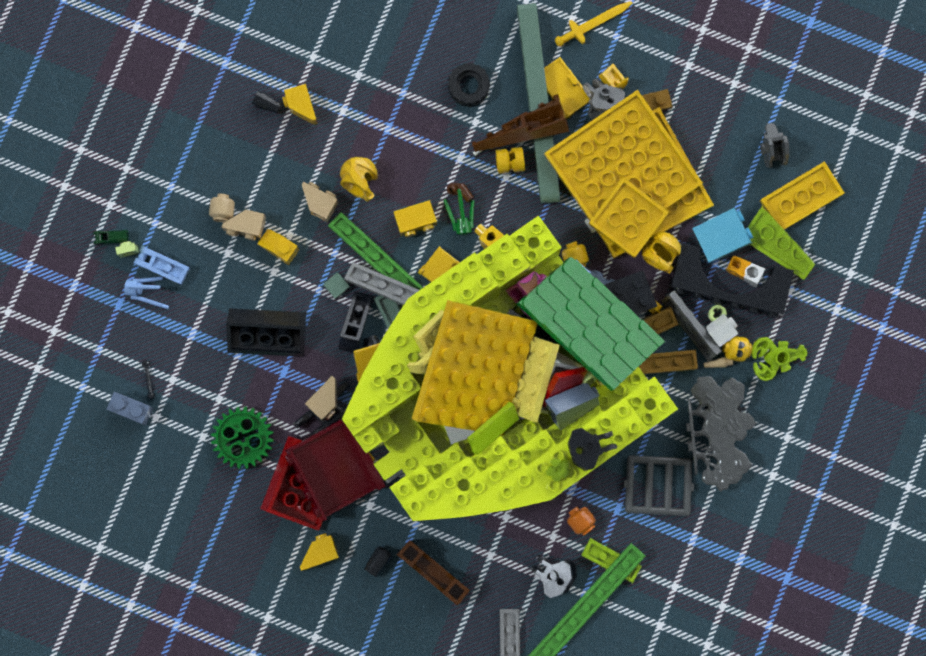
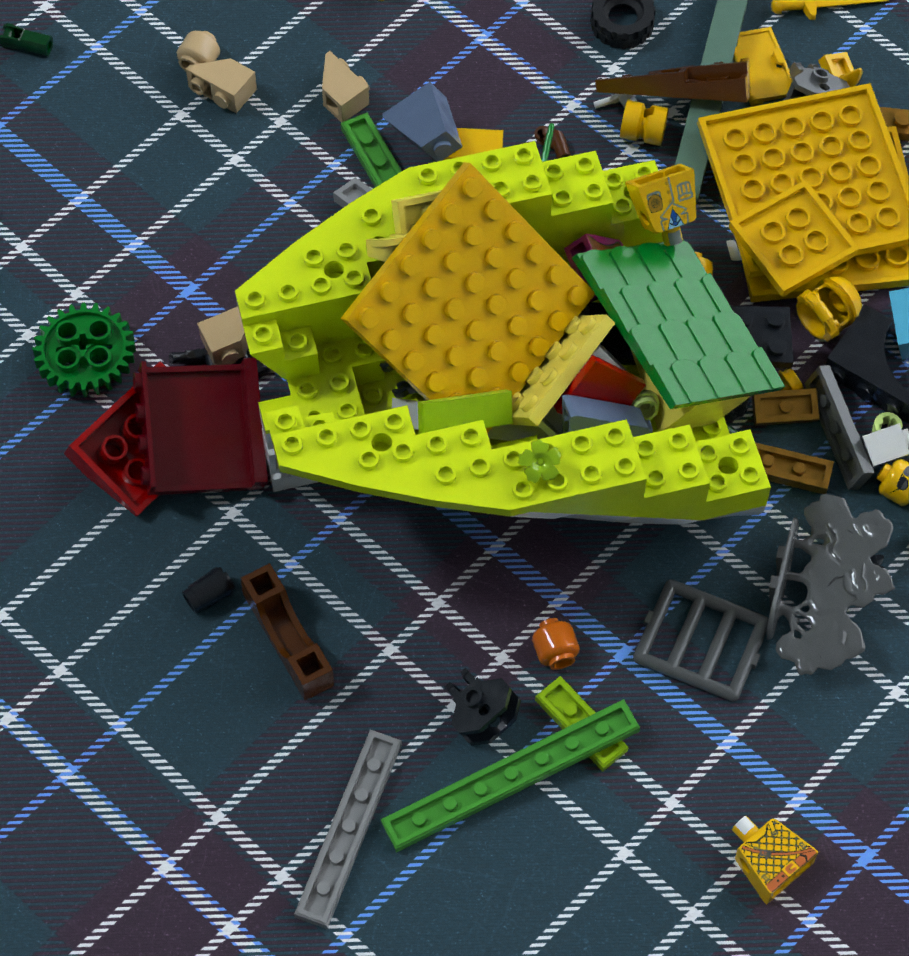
camera: 25 degrees right, 20 degrees down
(127, 249) = (39, 60): yellowish green plate -> none
(135, 287) = (28, 110): light blue plant -> none
(162, 265) = (79, 96): light blue plate -> none
(266, 332) = (186, 225): black slope -> none
(278, 246) = (259, 127): yellow slope -> none
(320, 552) = (122, 546): yellow slope -> none
(336, 285) = (317, 203): sand green tile -> none
(355, 175) = (412, 65): yellow helmet -> none
(383, 214) = (426, 122): none -> sand blue slope
(557, 248) = (665, 201): none -> yellow torso
(590, 448) = (597, 440): black hinge -> none
(721, 363) = (867, 497): tan piece -> none
(738, 601) = (771, 856): none -> torso

